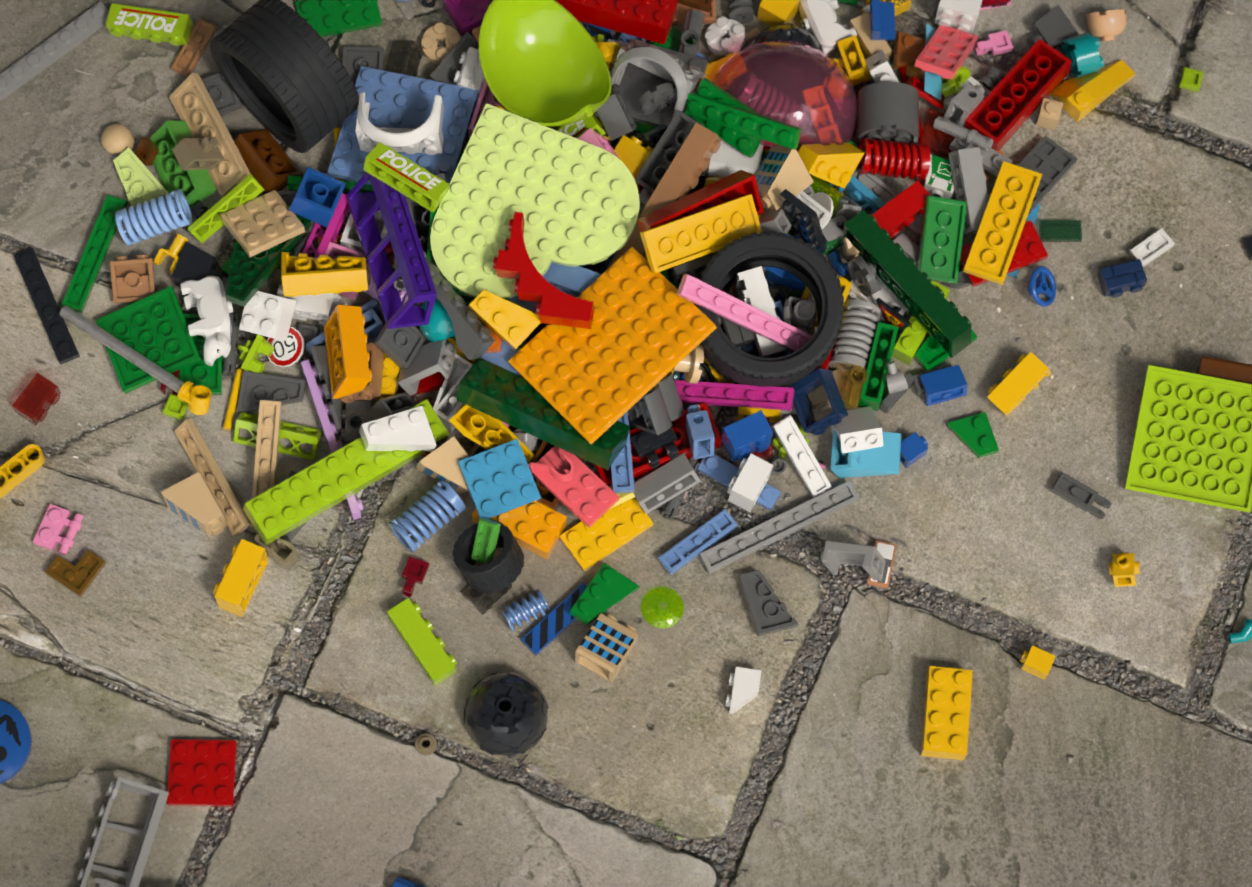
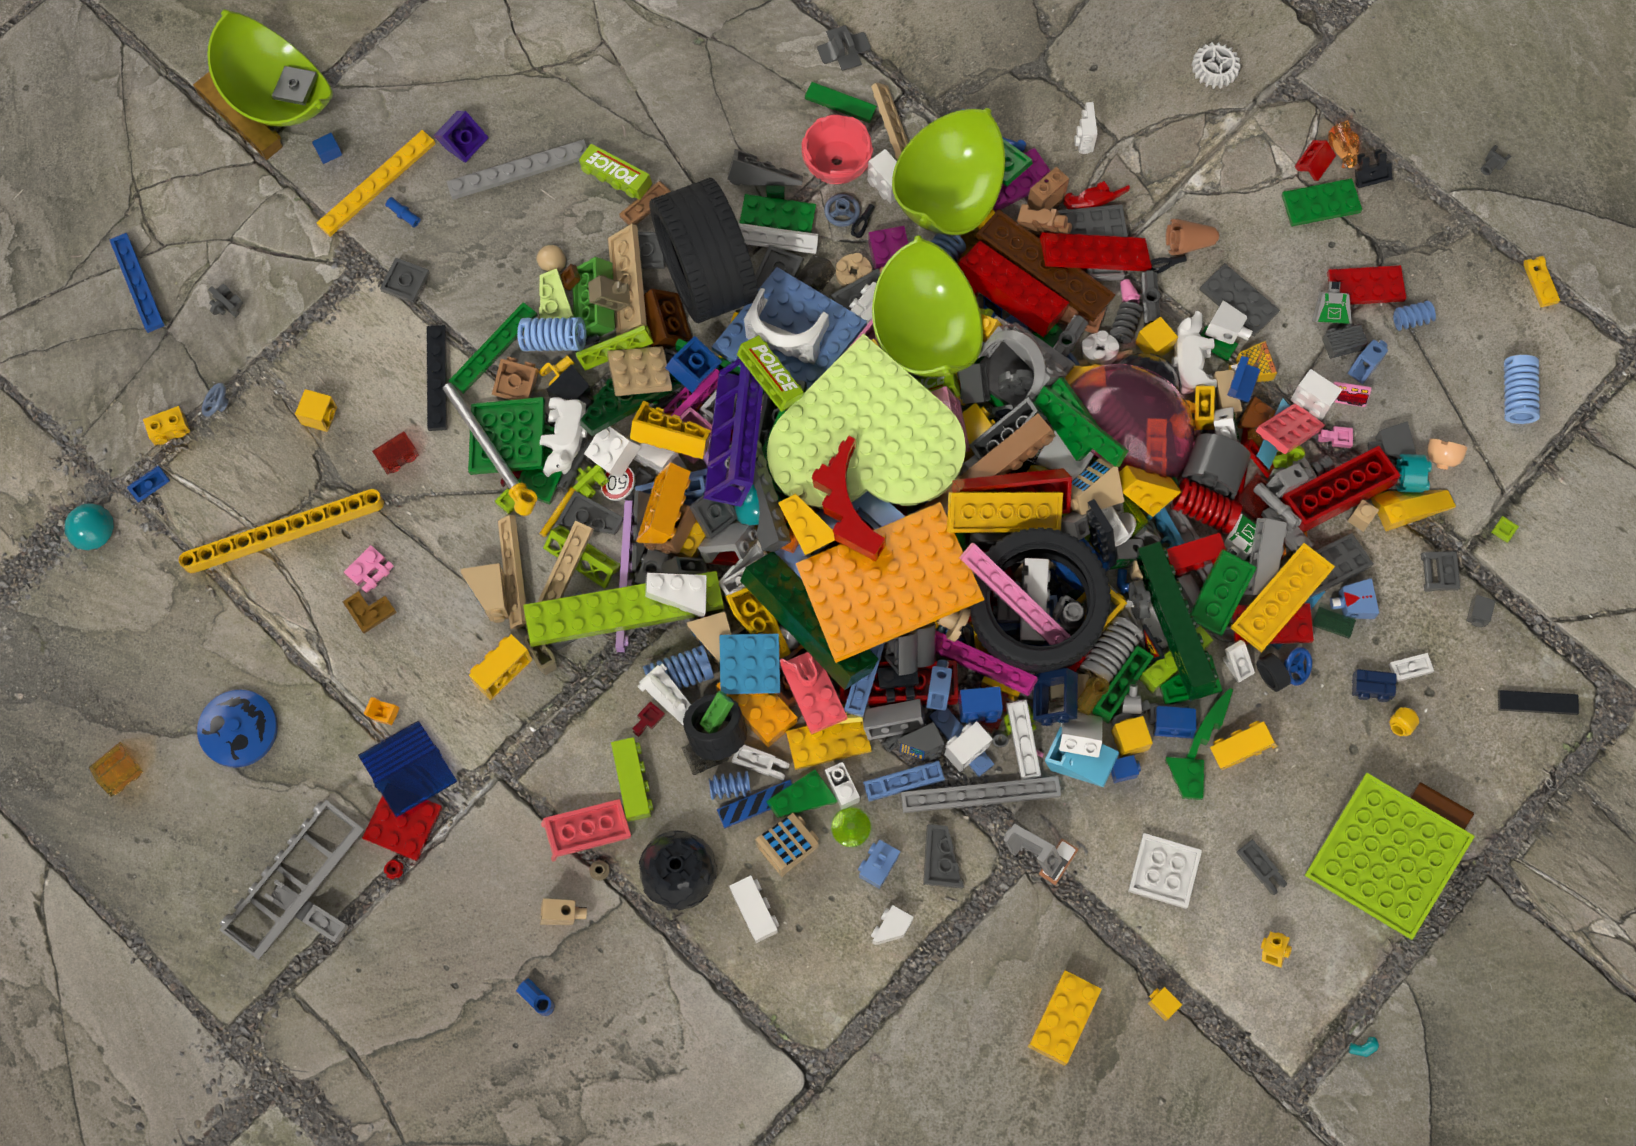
camera: 25 degrees right, 0 degrees up
(134, 668) = (381, 711): none -> light orange bracket
(185, 716) = (407, 768): none -> clear blue piece
(219, 823) = (393, 864): none -> red plate
(358, 34) = (779, 238): none -> white plate
(396, 707) = (586, 828): none -> coral plate
(396, 800) = (552, 914): none -> tan torso
(426, 541) = (665, 692): none -> white piece
(546, 576) = (759, 761): none -> white hinge
(598, 723) = (754, 908): none -> white brick
(639, 569) = (842, 786): none -> white slope
(703, 497) = (922, 743): none -> dark grey slope
(706, 632) = (879, 863): none -> medium blue brick
(907, 414) = (1131, 736): none -> yellow head
(980, 369) = (1213, 720): none -> green slope
(982, 302) = (1238, 661): none -> white slope
(988, 534) = (1165, 871): none -> white plate
(1021, 300) = (1273, 672): none -> black tyre
(1075, 201) = (1357, 600): none -> medium blue torso
(1150, 140) = (1446, 570): none -> dark grey plate
(1164, 303) = (1404, 721): none -> yellow head
(1197, 168) = (1480, 611): none -> dark grey brick

